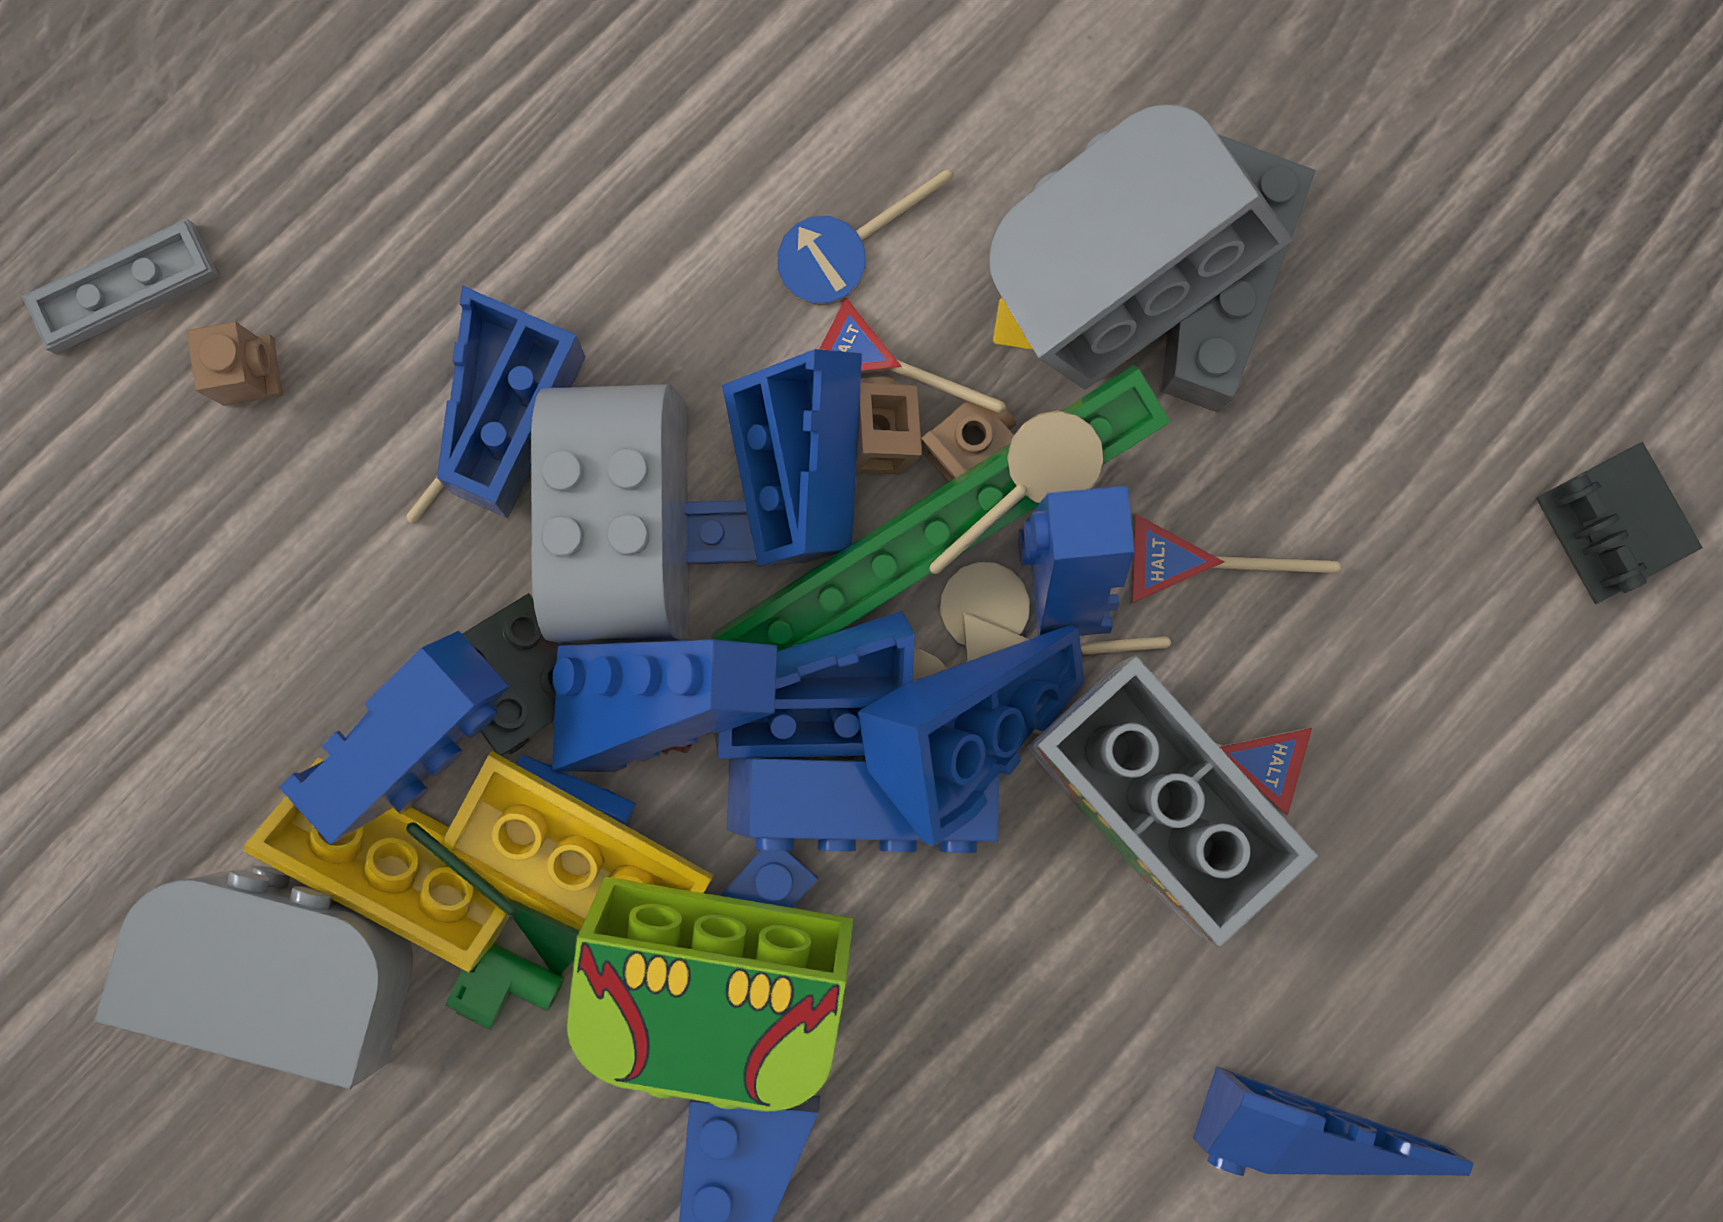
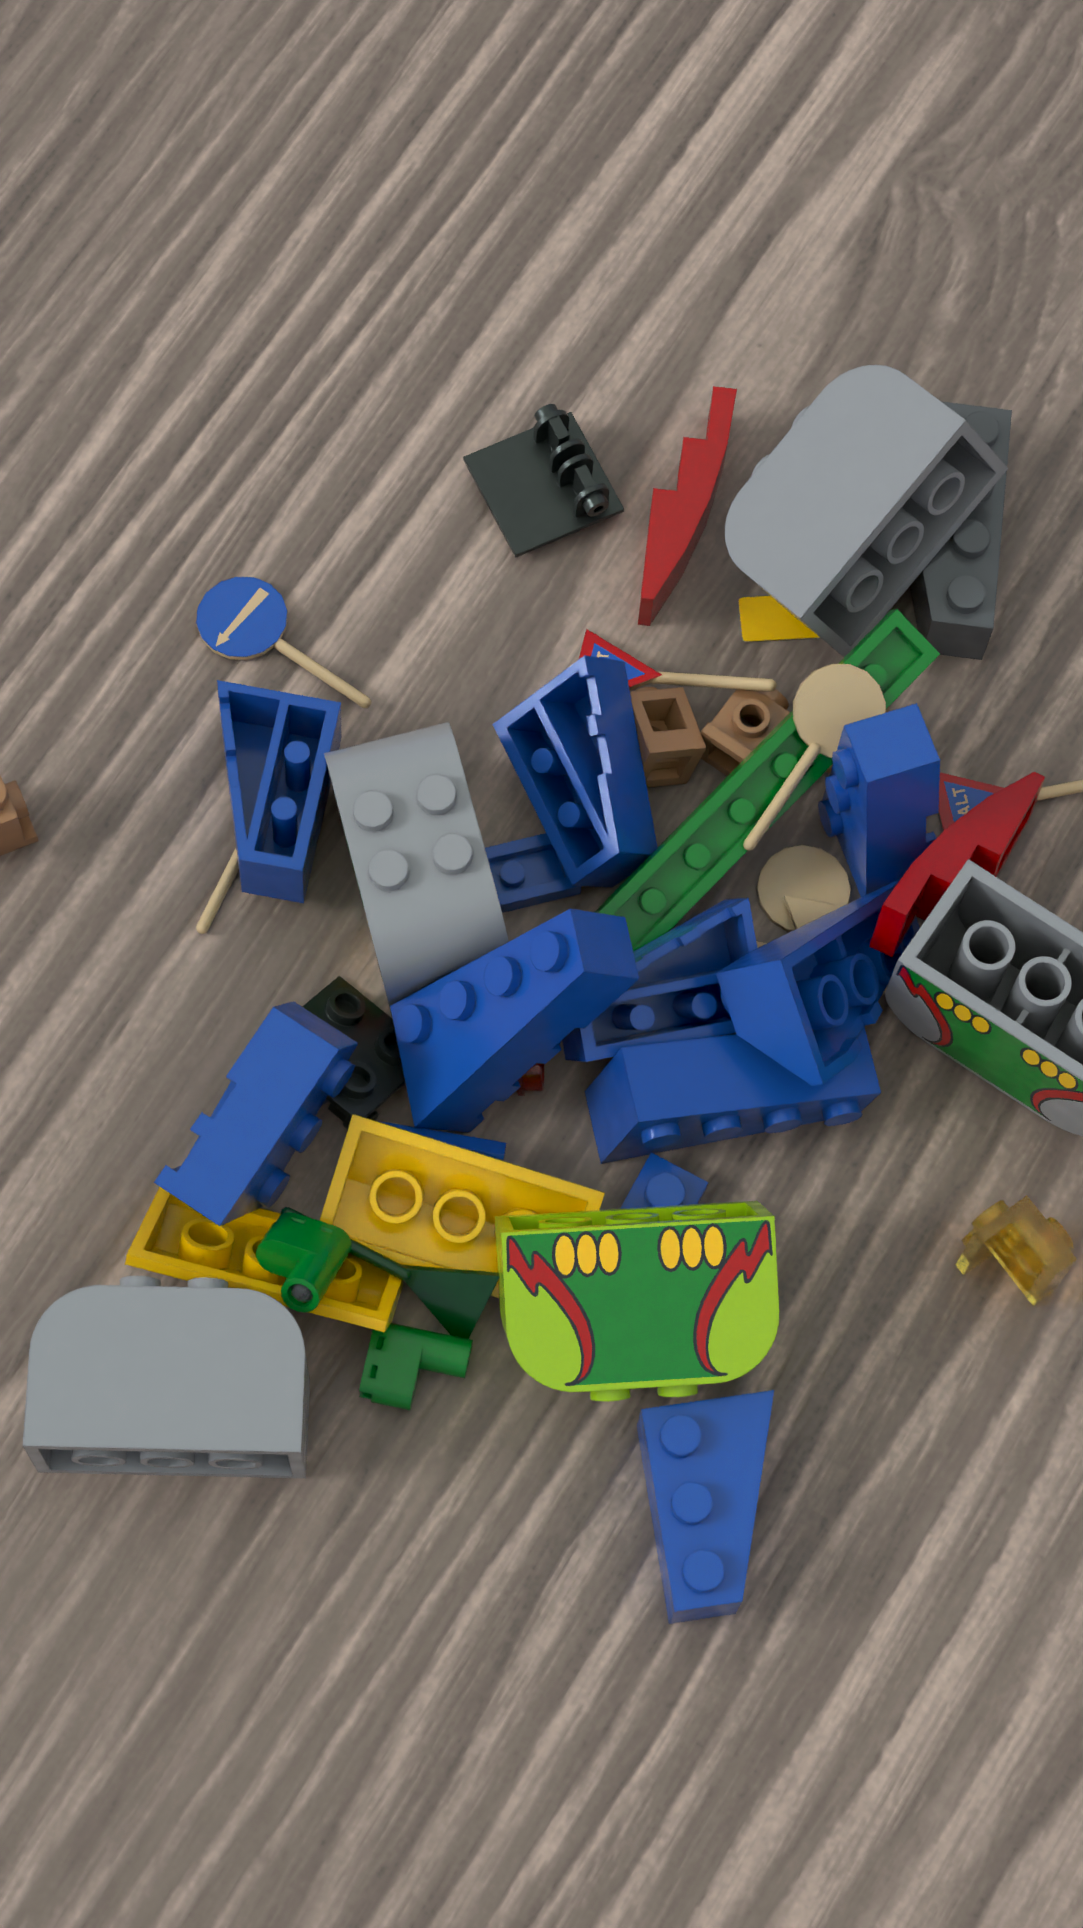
camera: 15 degrees left, 15 degrees down
(418, 879) = (305, 1254): none -> green piece
(525, 216) = (248, 619): none -> blue piece
(825, 257) = (558, 597): blue piece -> none
(840, 138) = (543, 482): none -> pearl dark grey hinge
(961, 207) = (682, 515): none -> red slope
(1101, 1030) = (1024, 1243): none -> clear yellow bracket
(1142, 624) = (981, 835): none -> red slope

